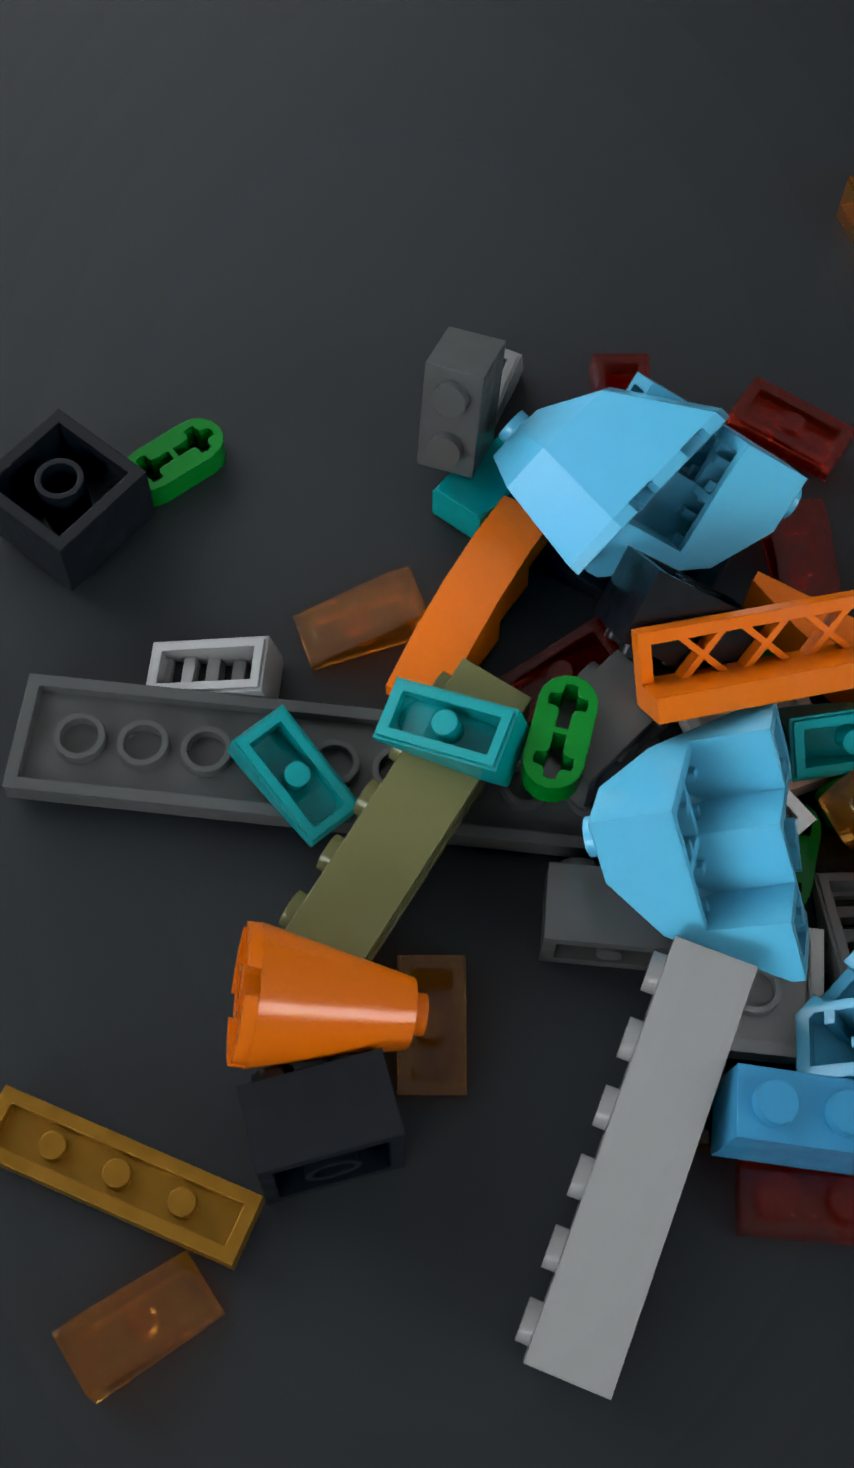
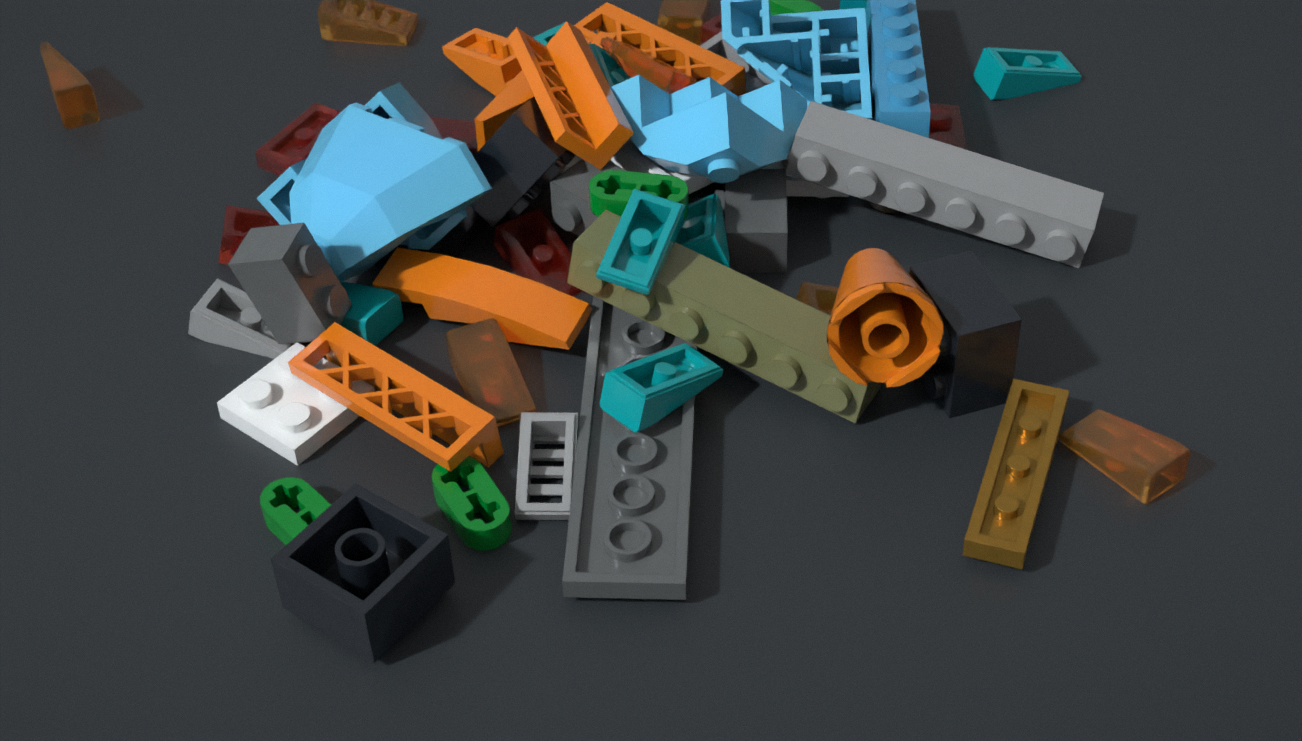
camera: 90 degrees left, 20 degrees down
(176, 603) = (481, 497): none -> green beam
(326, 541) = (399, 387): none -> orange fence
(347, 448) = (286, 410): none -> white plate
(521, 829) = (705, 230): none -> teal slope

